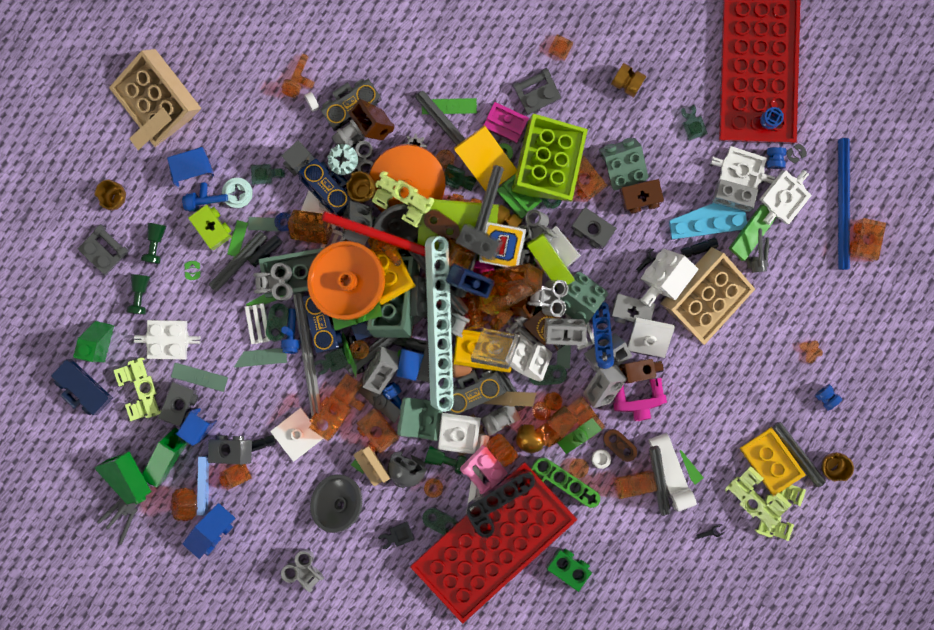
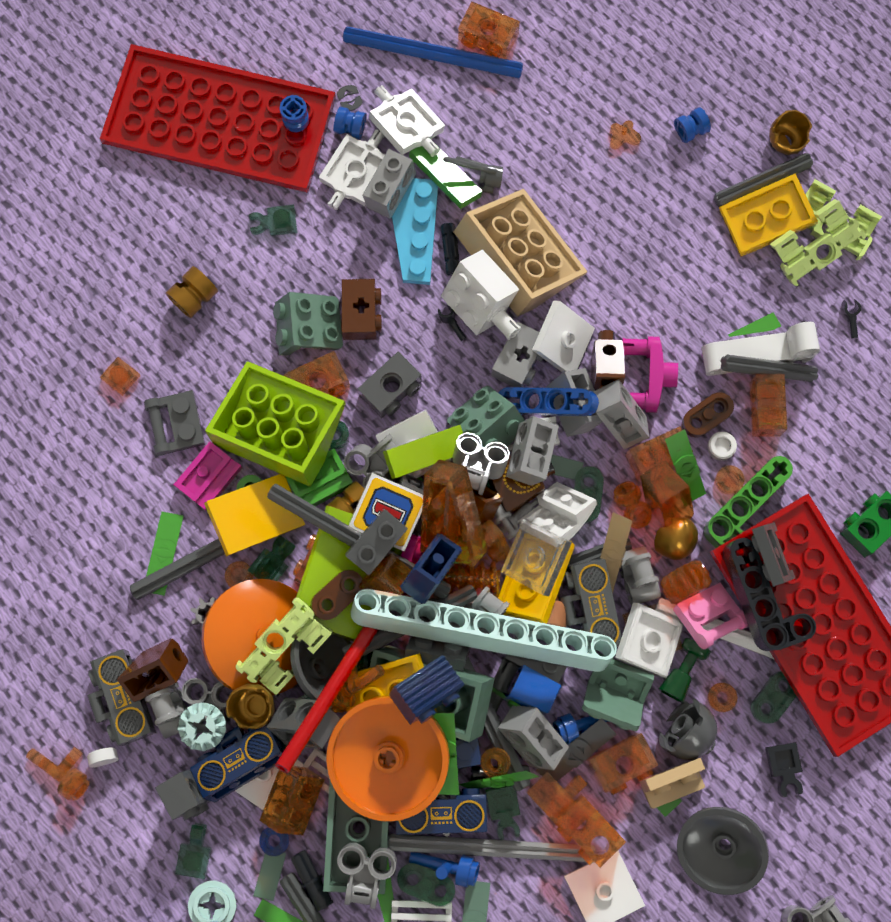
camera: 75 degrees left, 10 degrees down
(391, 294) = (427, 690): none -> dark blue brick
(529, 500) = (775, 564): none -> dark grey plate

